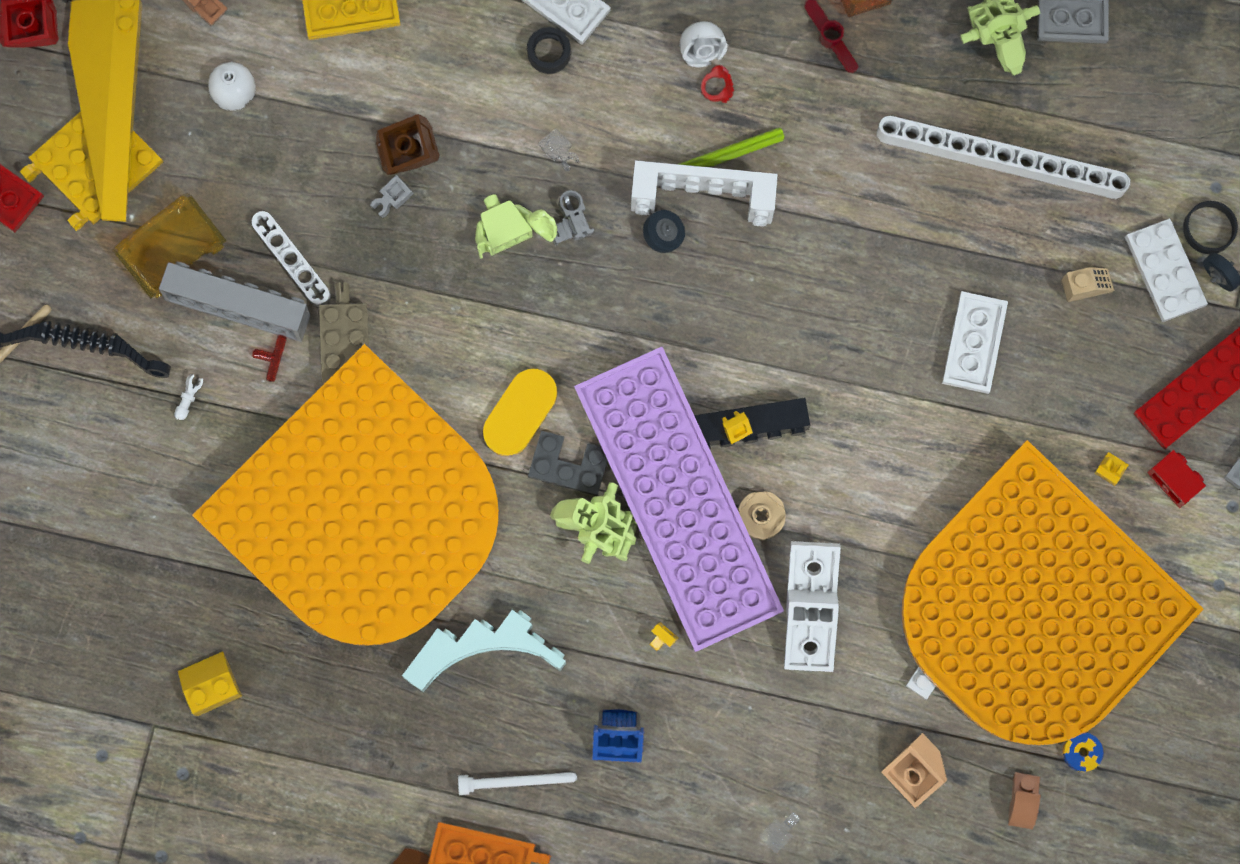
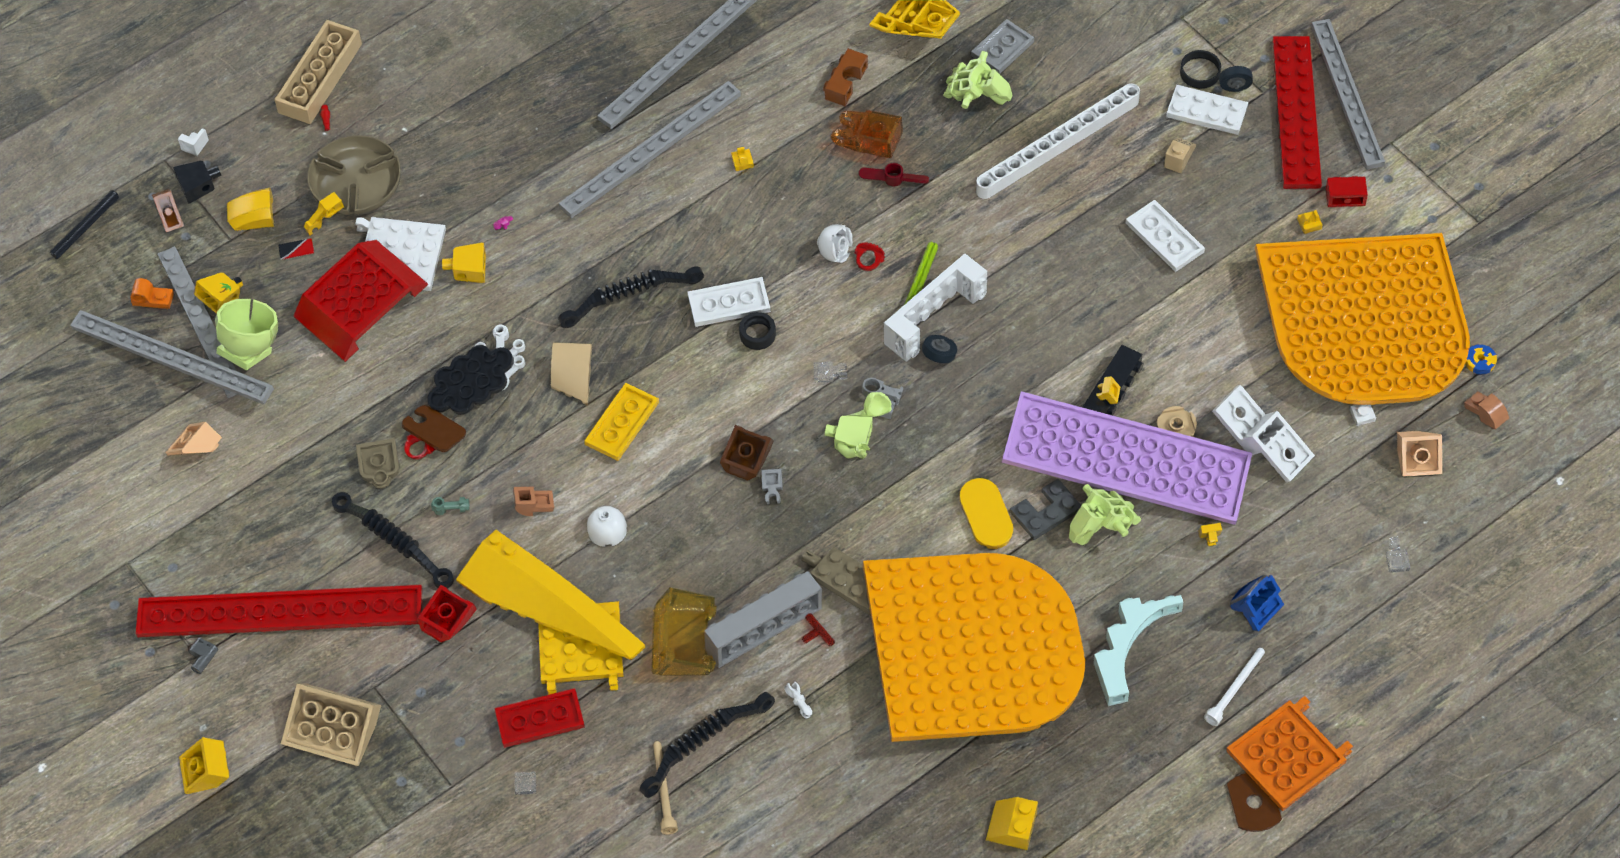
camera: 45 degrees left, 20 degrees down
(285, 249) = (750, 568): white beam -> none

